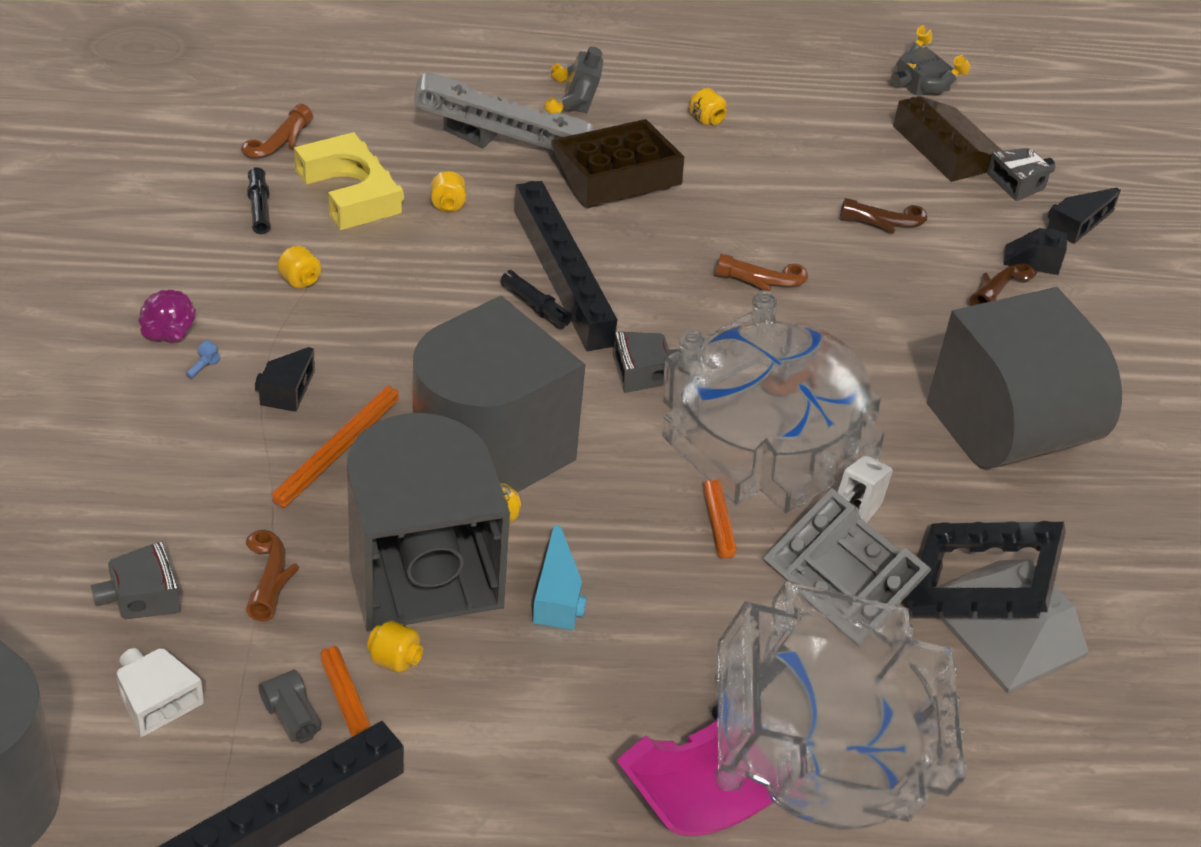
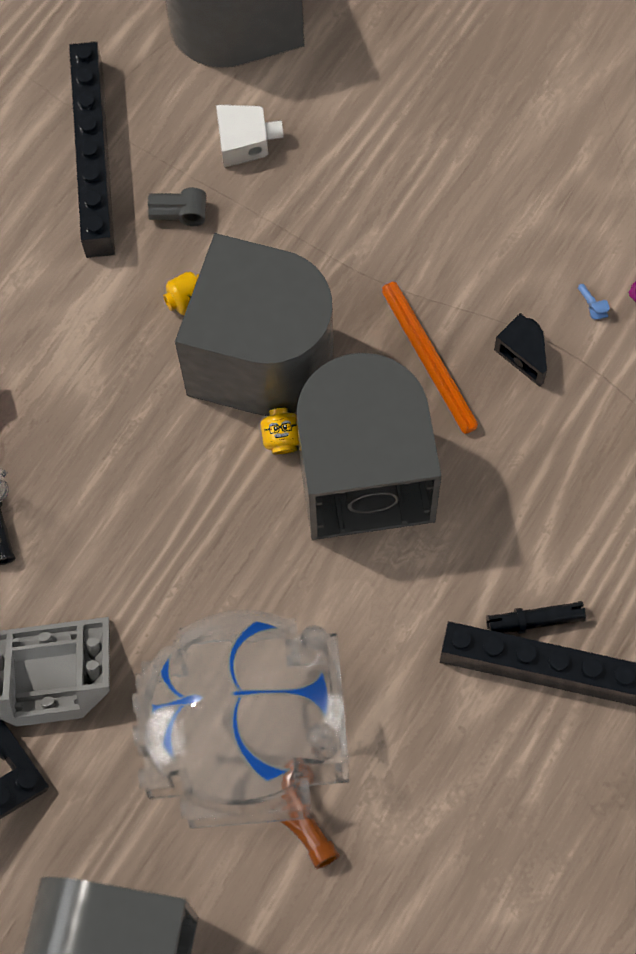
camera: 130 degrees right, 25 degrees up
(140, 584) = (347, 160): dark grey torso -> none
(264, 600) = (287, 232): dark orange plant -> none
(344, 690) = (168, 247): orange axle -> none
(560, 585) = (172, 435): medium azure slope -> none
(640, 359) = (391, 663): dark grey torso -> none
(719, 519) = (162, 604): orange axle -> none
(761, 276) = (464, 869): dark orange plant -> none
(867, 482) = (105, 728): white torso -> none

